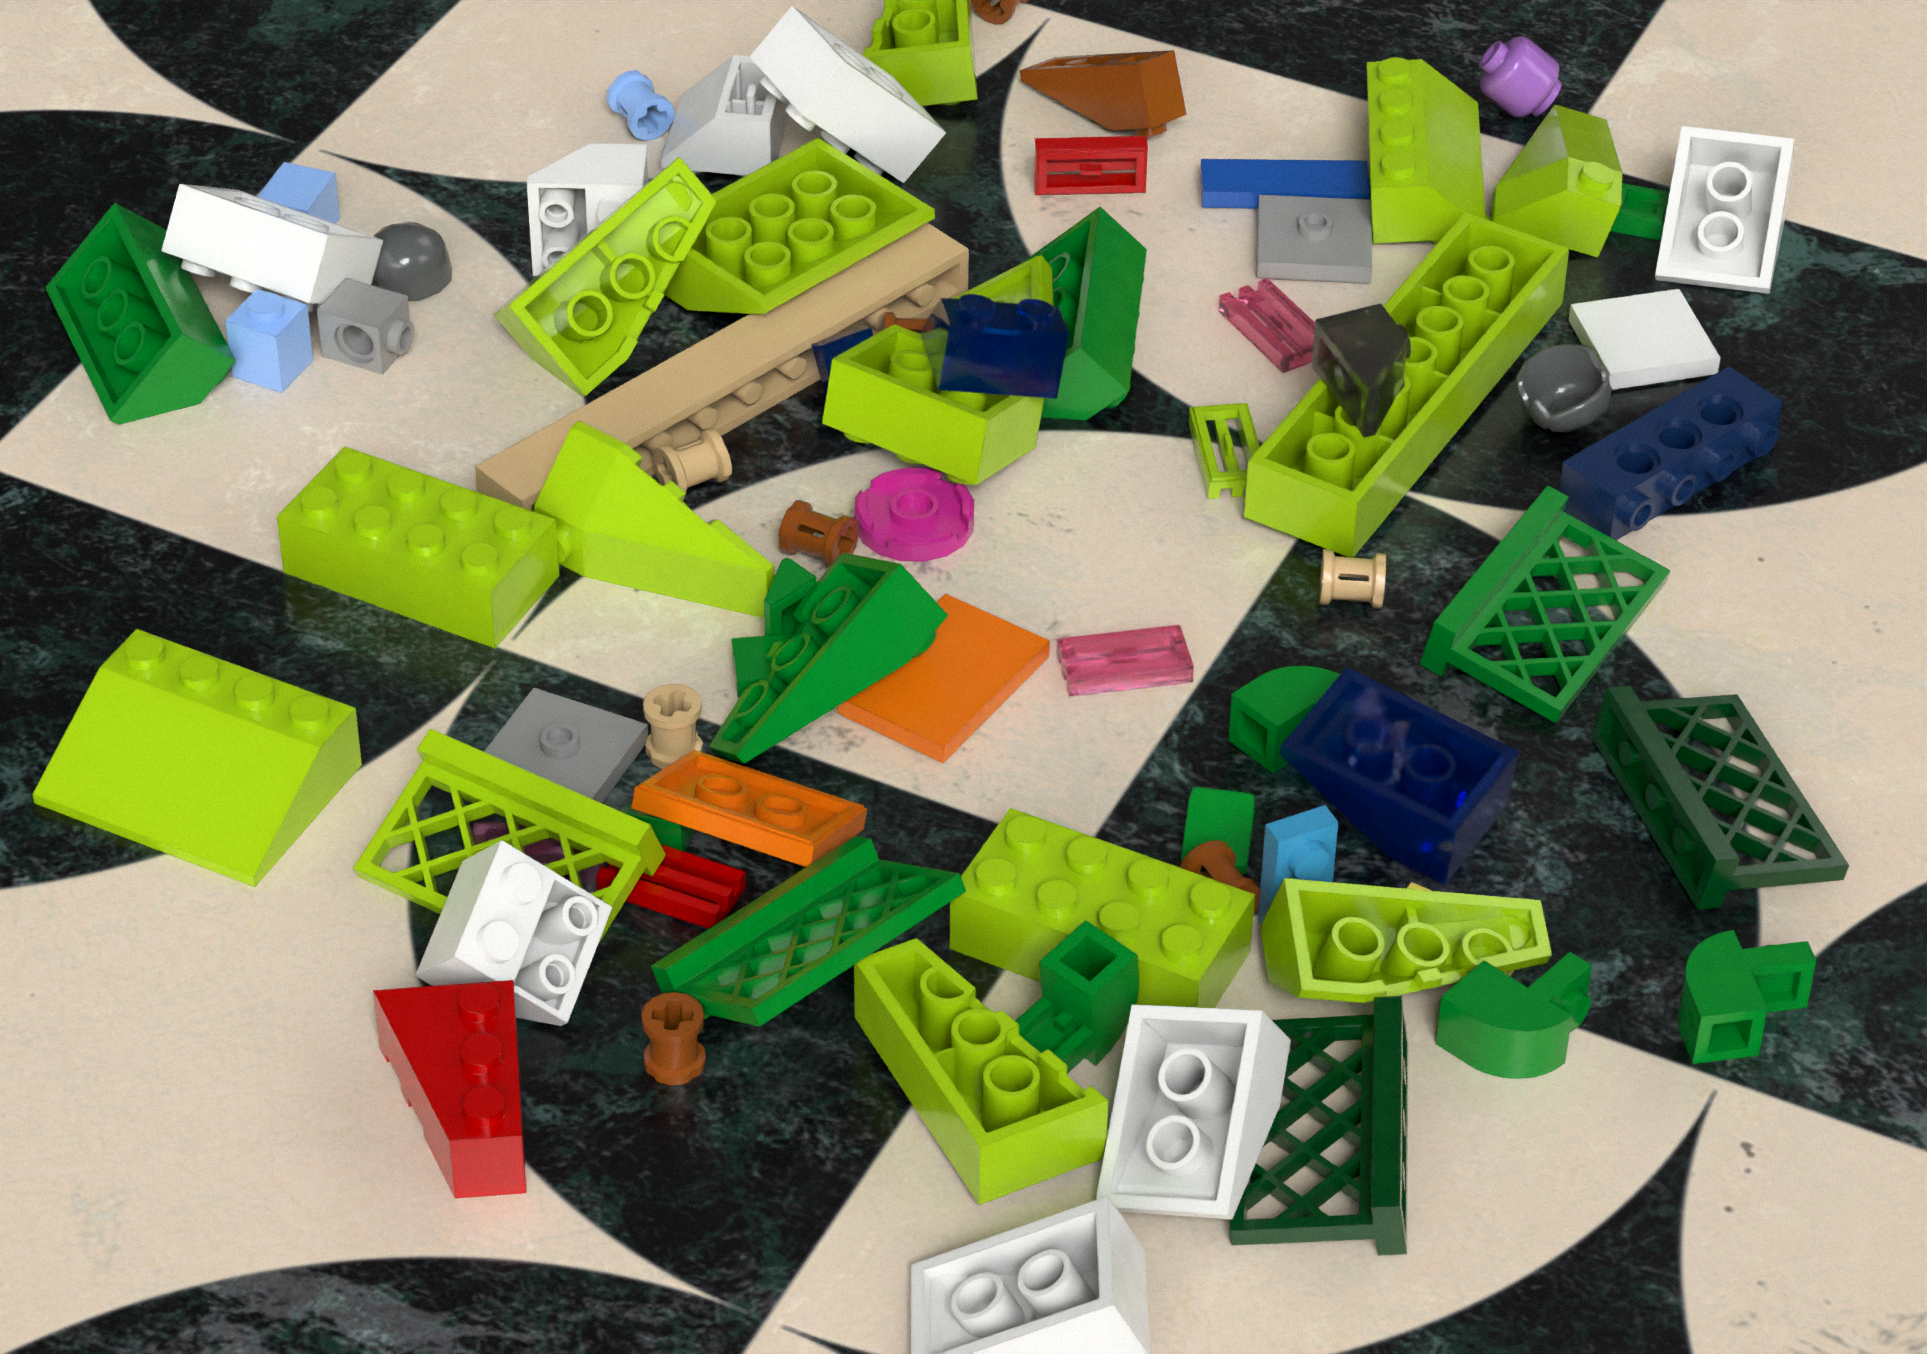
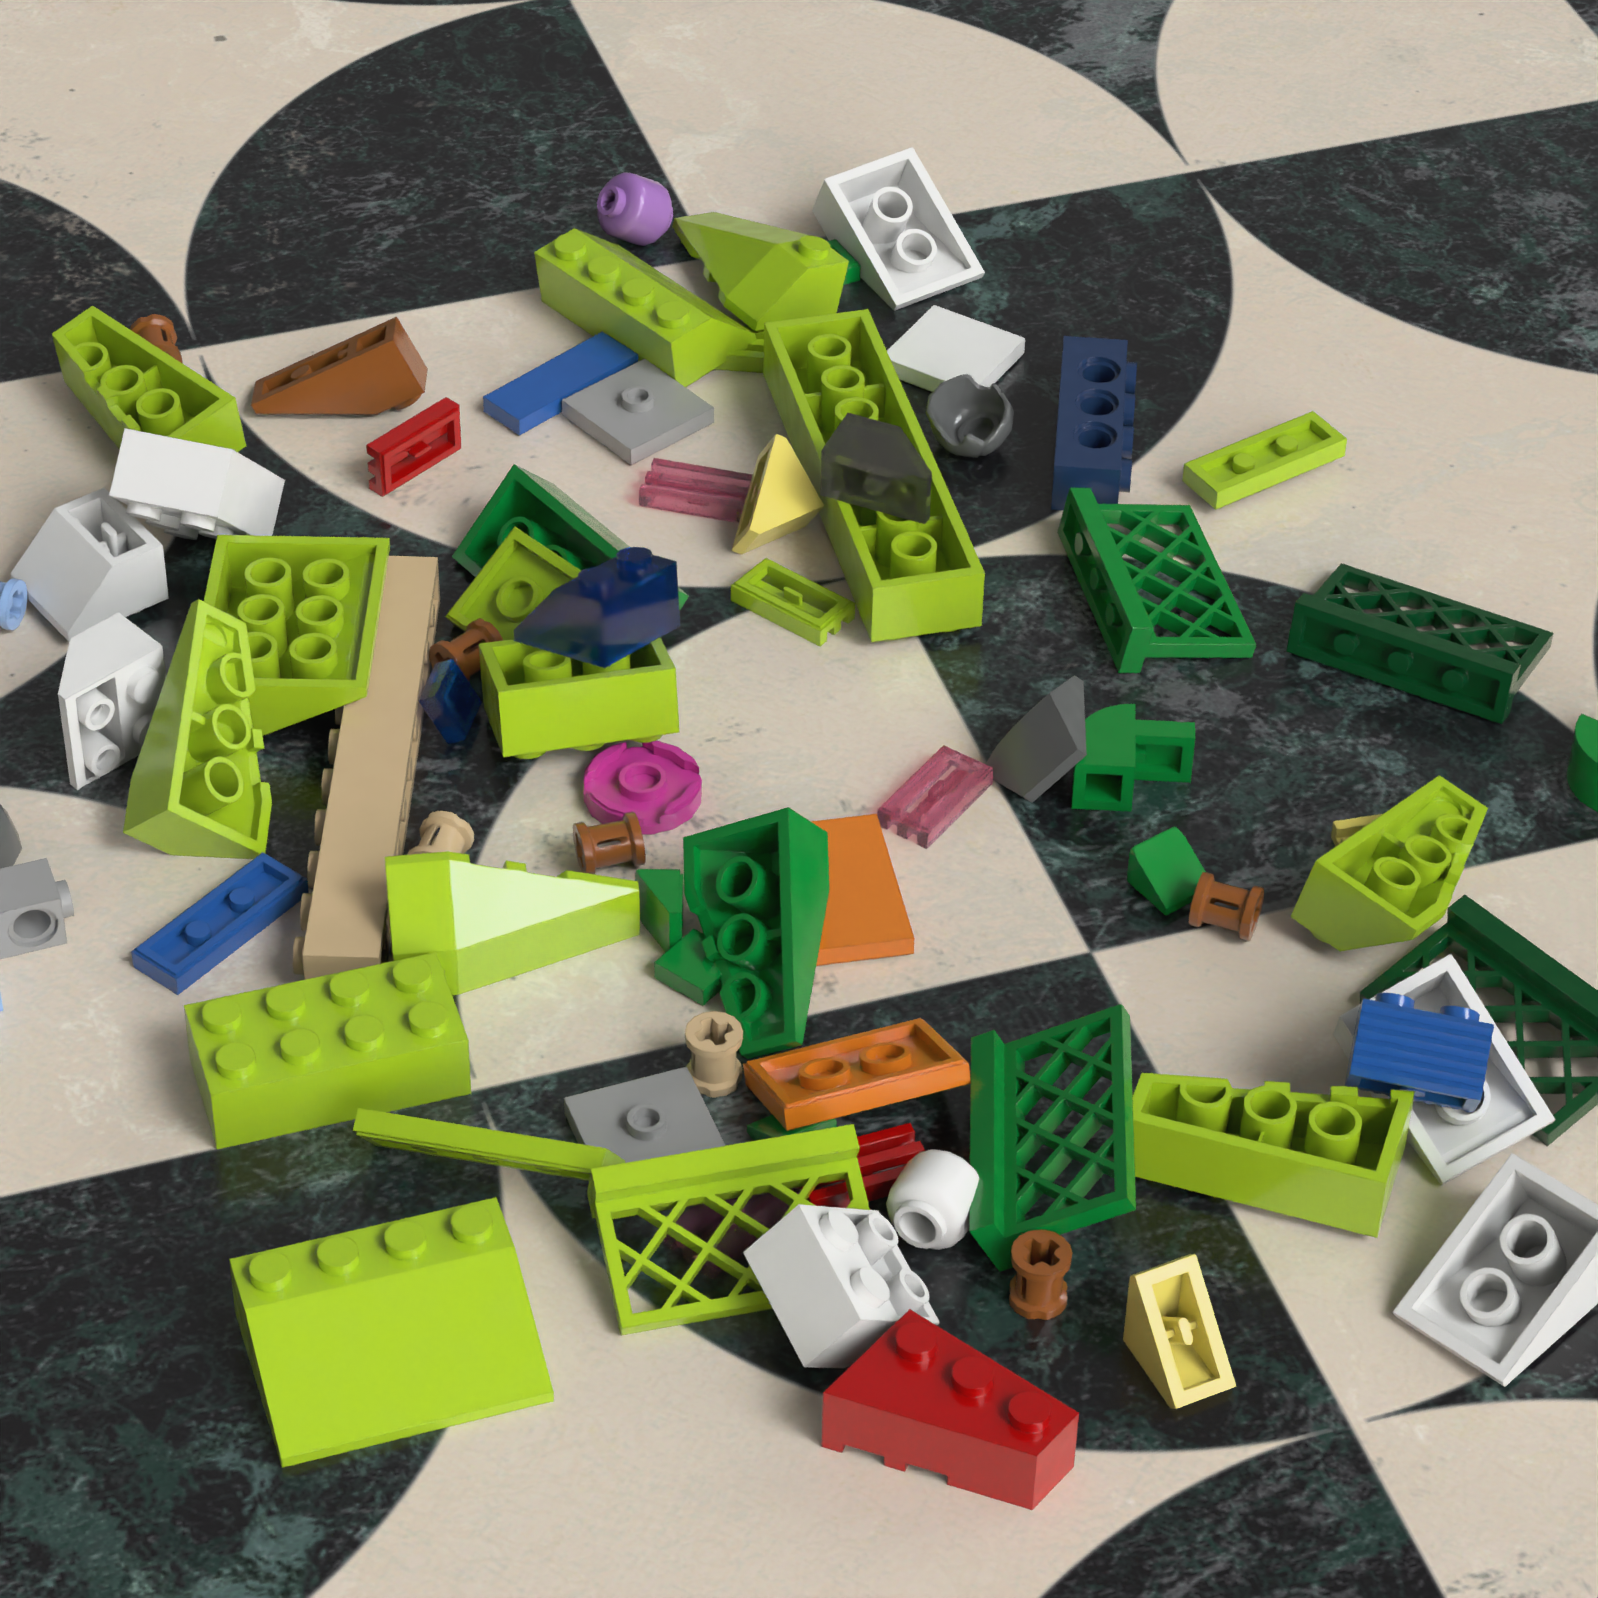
camera: 45 degrees left, 0 degrees up
(418, 674) = (481, 1145): none -> lime tile
(480, 420) = (219, 923): none -> blue tile
(665, 922) = (933, 1199): none -> white head
(706, 1148) = (1176, 1332): none -> light yellow slope
(1044, 880) = (1205, 979): lime brick -> none
(1084, 999) = (1275, 1032): green brick -> none
(1145, 1072) = (1420, 1052): none -> blue brick
(1248, 655) = (1043, 743): none -> dark grey slope
(1286, 364) = (777, 499): none -> light yellow slope
(1297, 849) = (1291, 843): dark azure plate -> none
(1370, 569) = (1013, 627): tan bush -> none
(1403, 772) = (1262, 743): clear blue slope -> none
(1514, 1027) = (1524, 871): green brick -> none
(1790, 572) = (1264, 460): none -> lime plate

